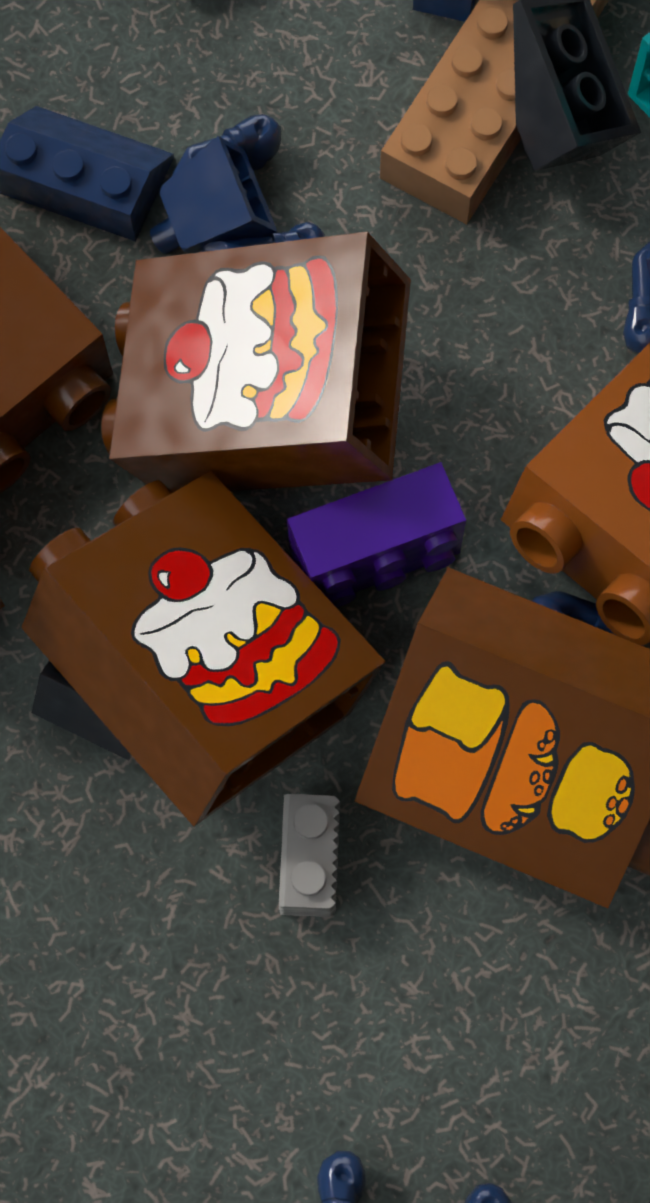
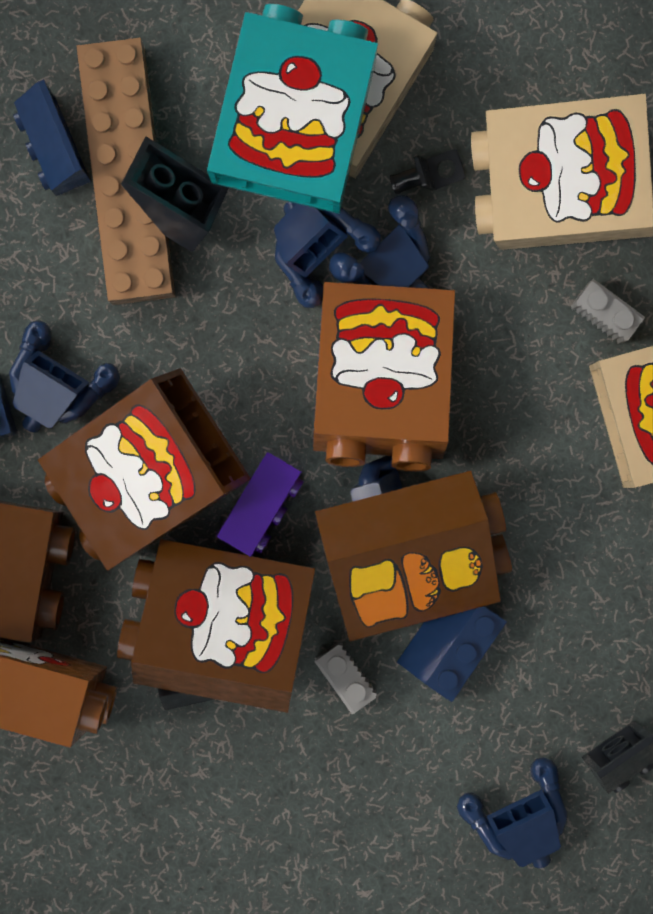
camera: 35 degrees left, 15 degrees up
(489, 928) = (450, 649): none -> dark blue slope

